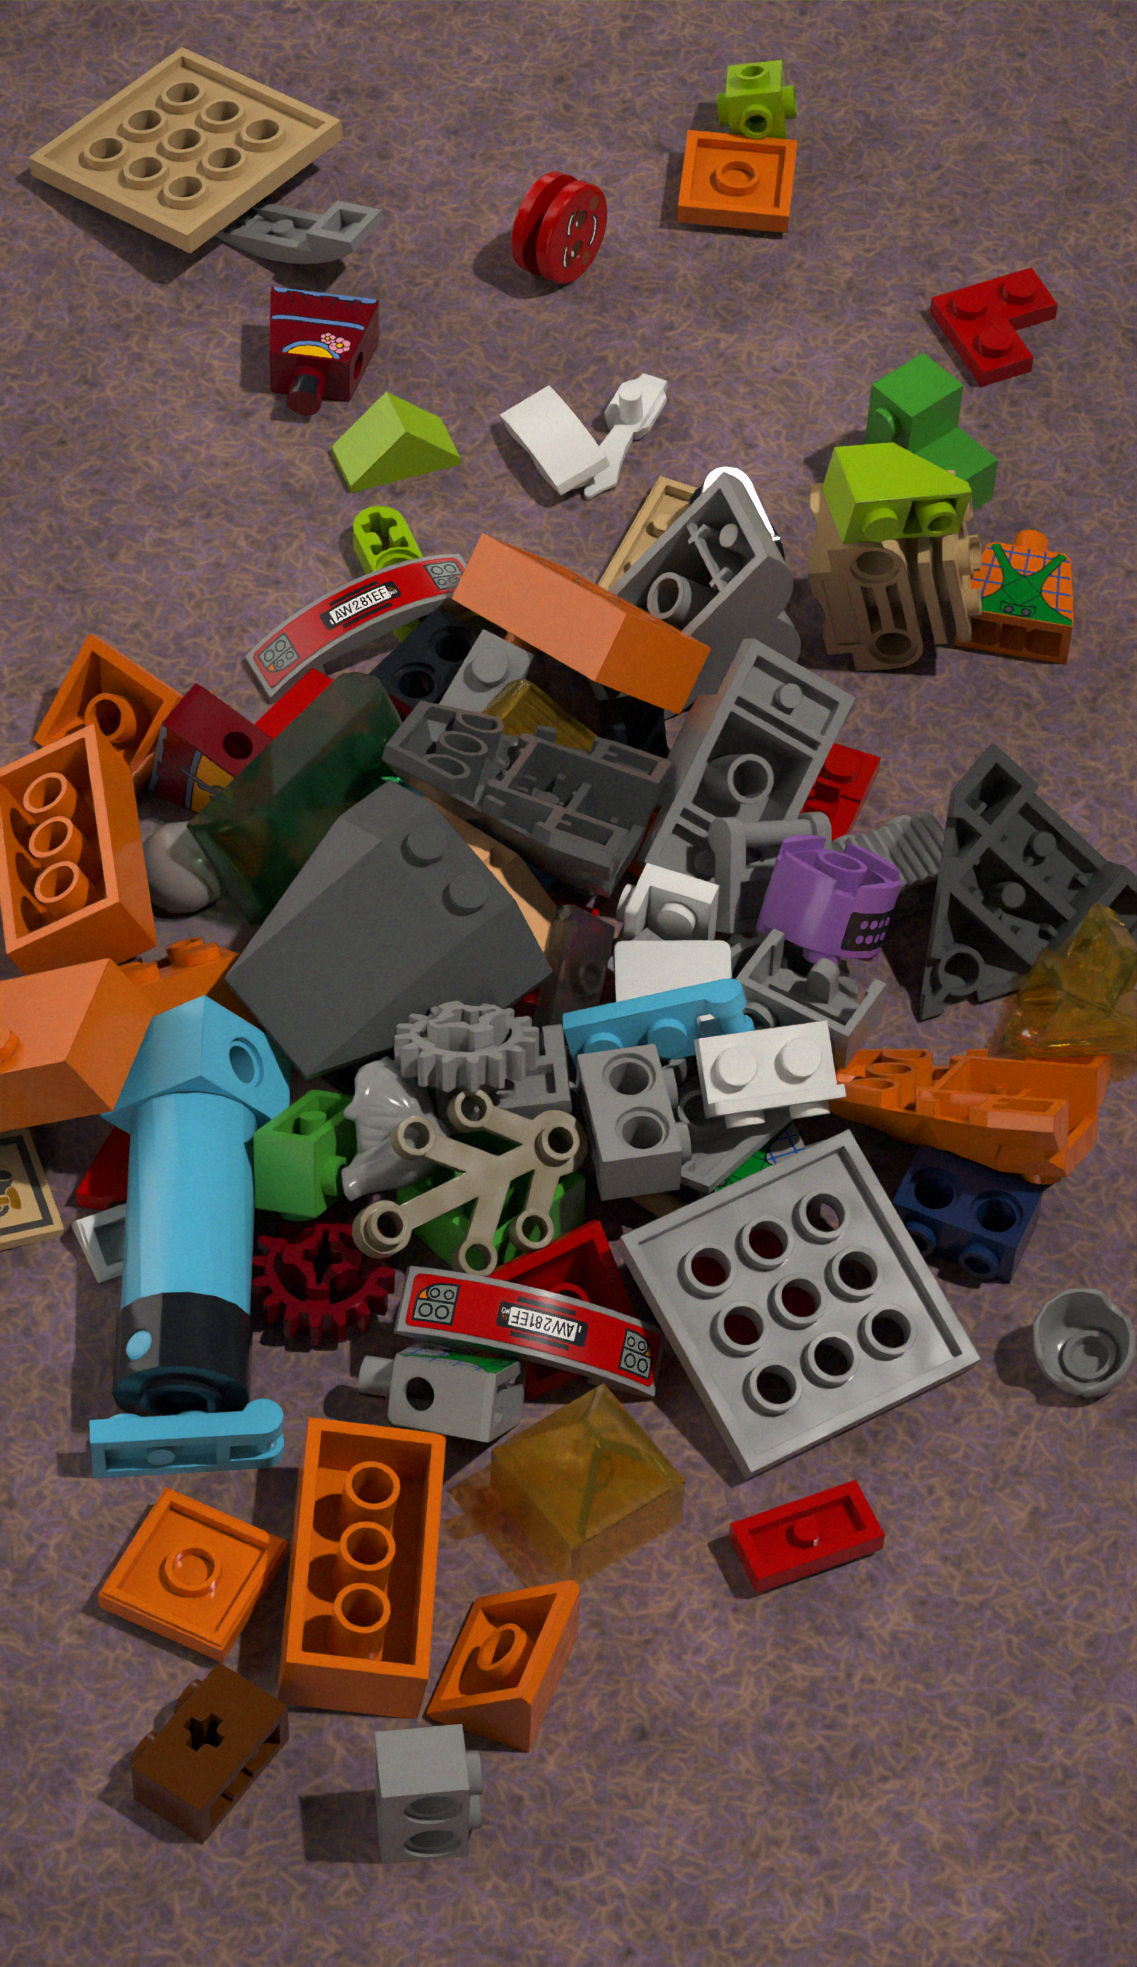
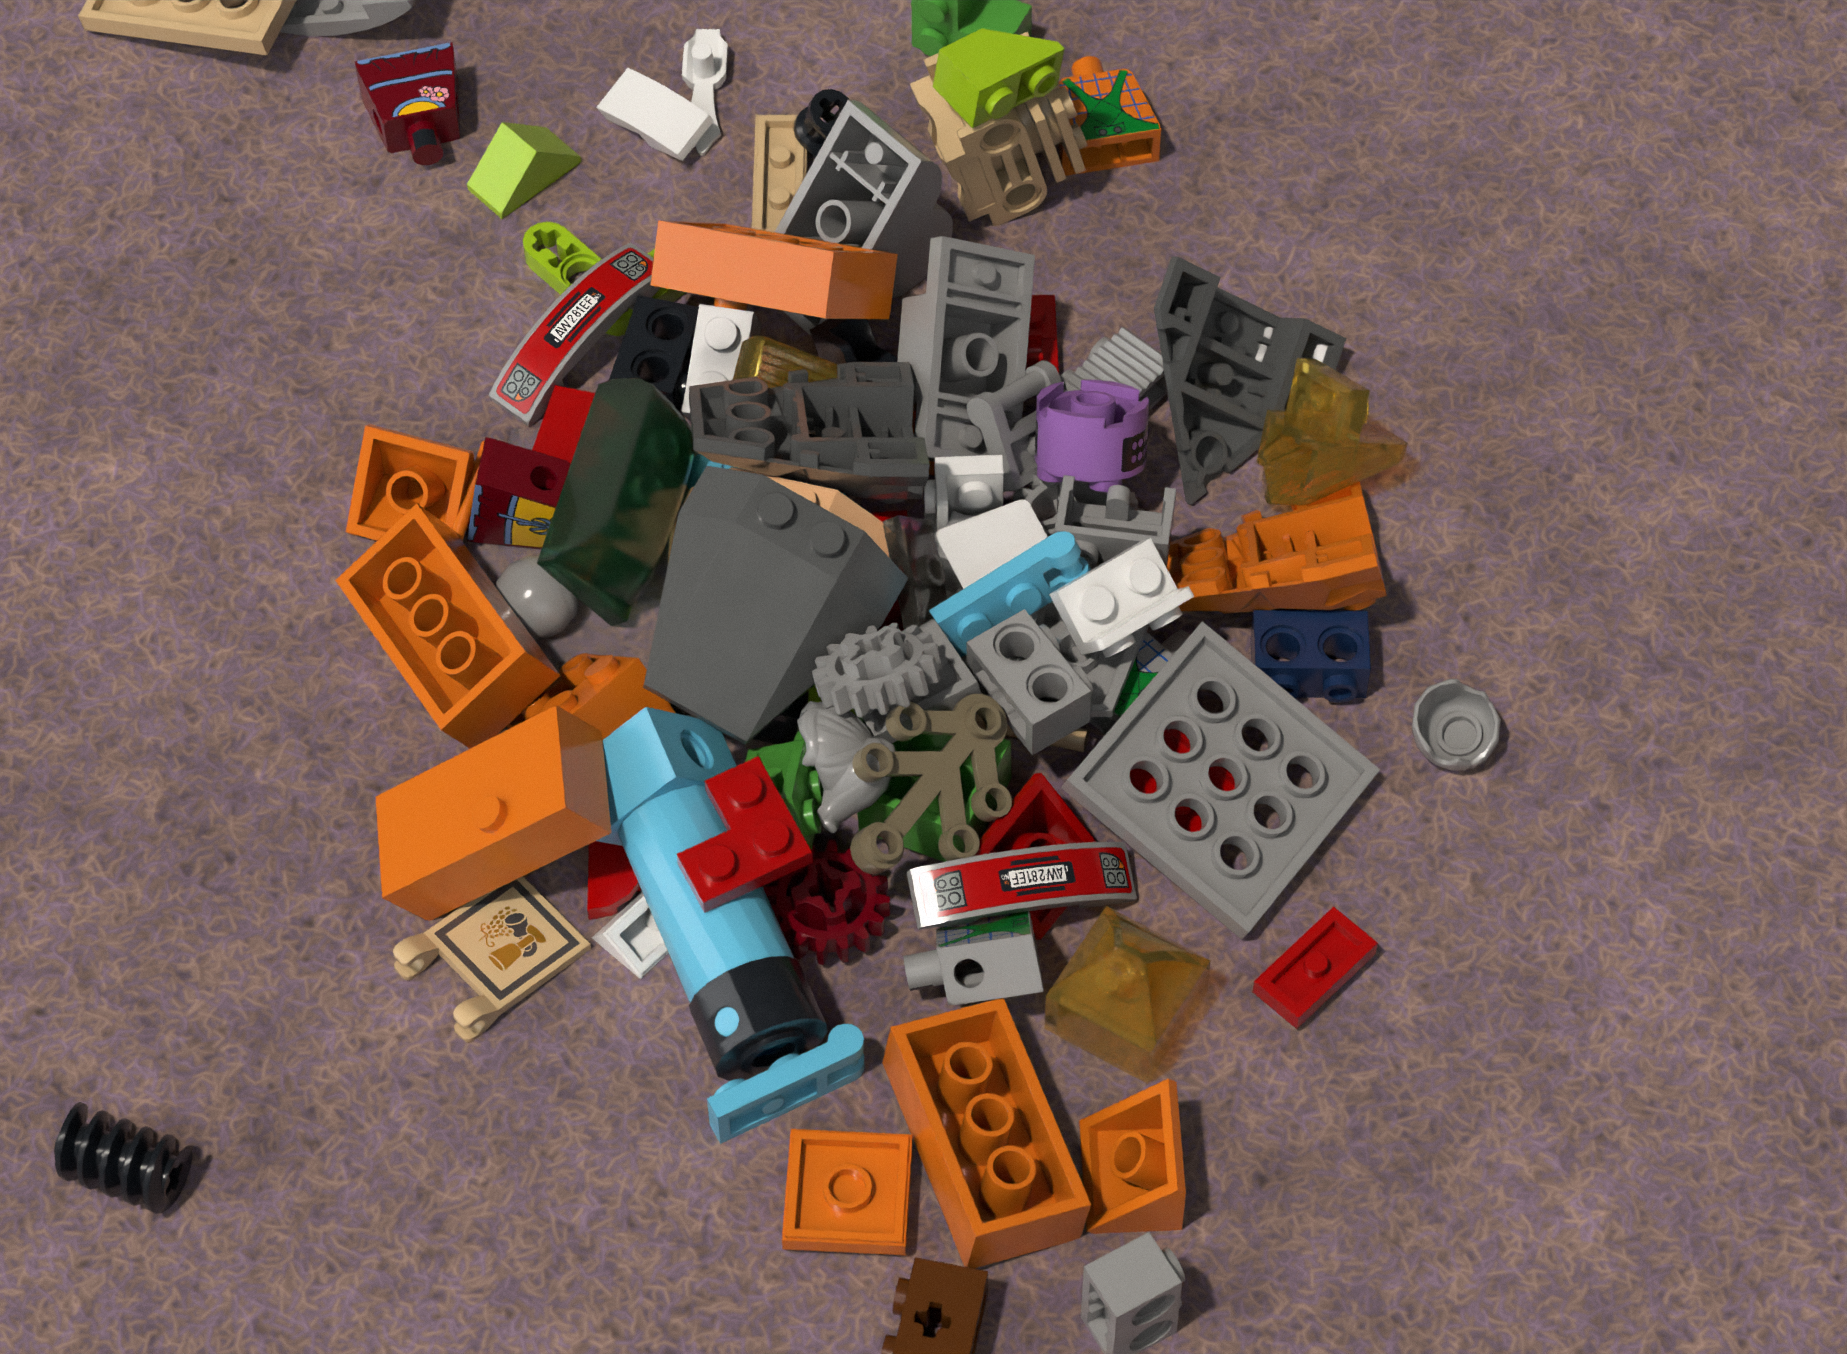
camera: 20 degrees left, 5 degrees up
(251, 1179) = (758, 843): none -> red plate

